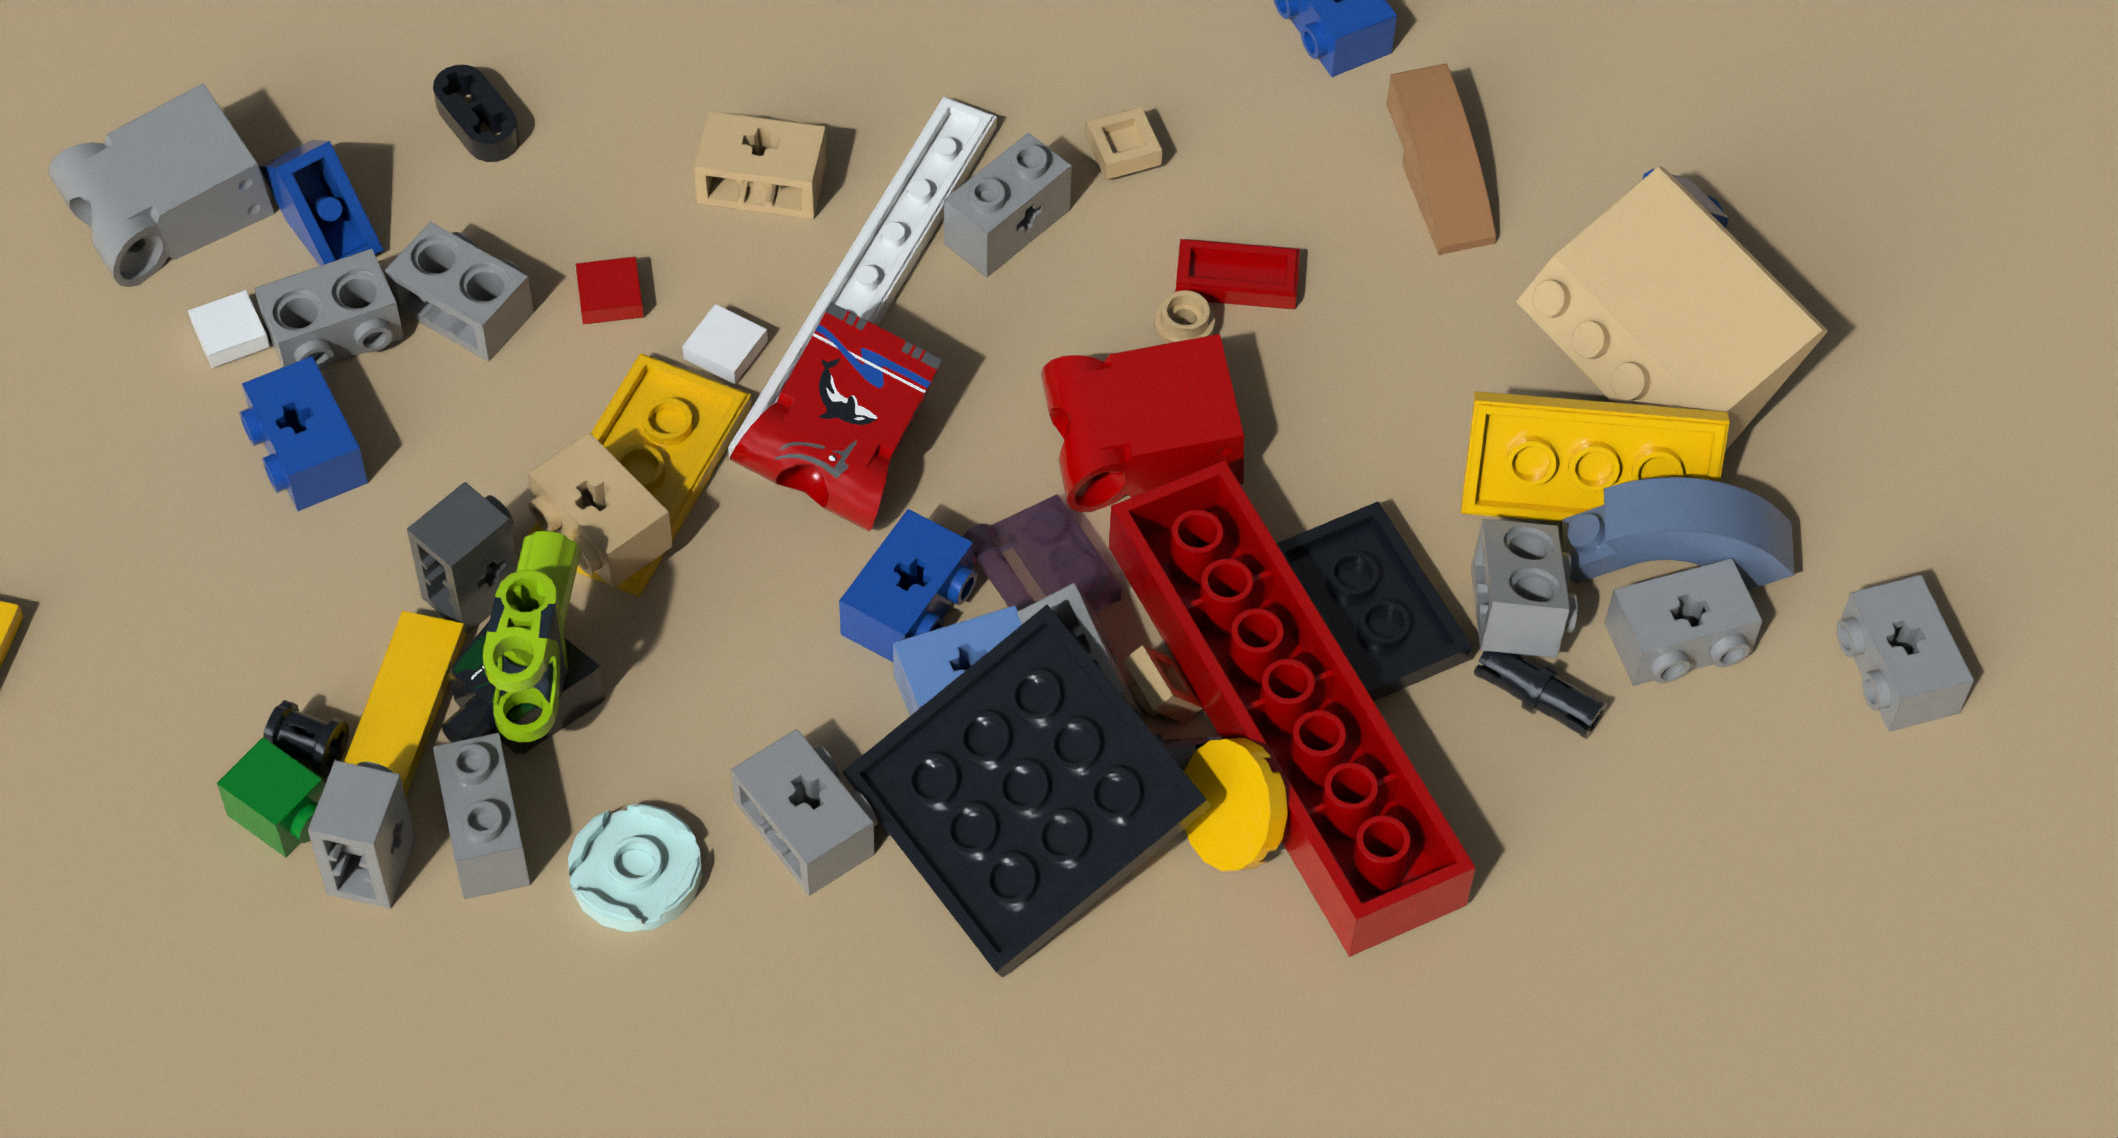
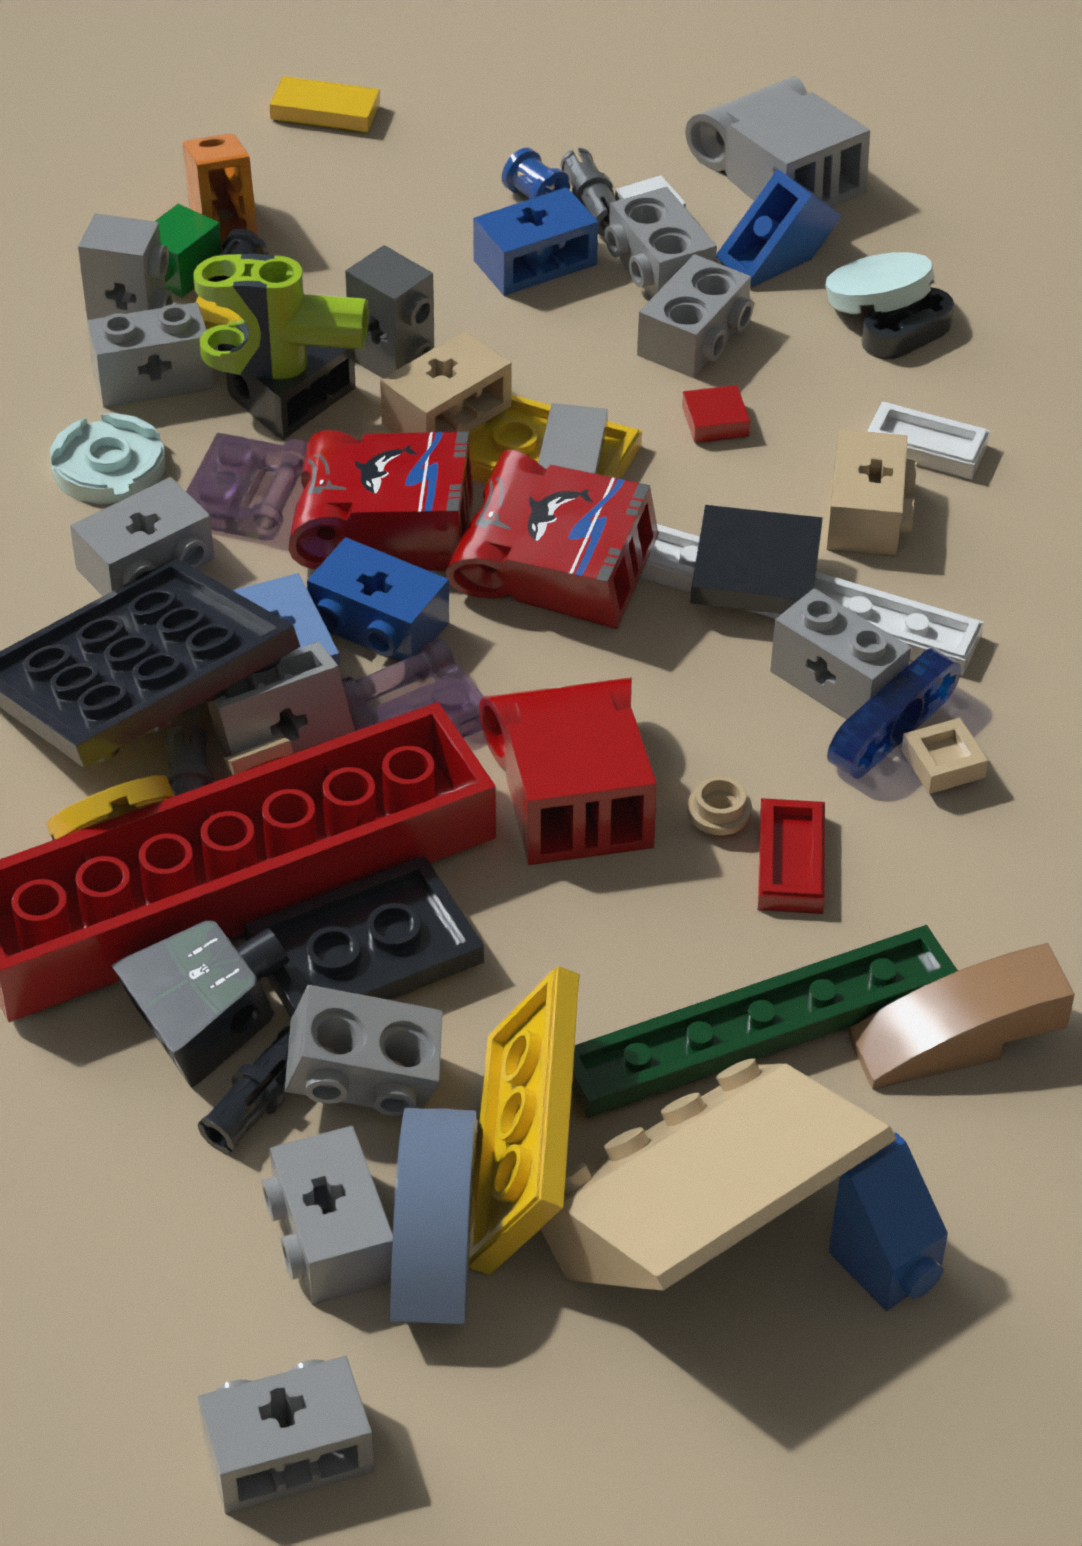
camera: 90 degrees right, 10 degrees down
(169, 745) = (220, 179): none -> orange torso
(182, 431) = (536, 175): none -> blue bush
(199, 381) = (589, 185): none -> dark grey pin
(424, 121) = (882, 280): none -> light aqua tile
(664, 118) = (934, 440): none -> white tile
(686, 407) = (574, 437): none -> light grey tile
(690, 743) = (232, 476): none -> clear purple plate
(725, 344) = (670, 485): white tile -> none
(754, 576) = (386, 492): none -> red piece
(864, 259) = (755, 559): none -> black tile
(1095, 188) = (892, 712): none -> clear blue beam
(1431, 281) = (753, 1021): none -> dark green plate
(1454, 721) = (202, 993): none -> torso

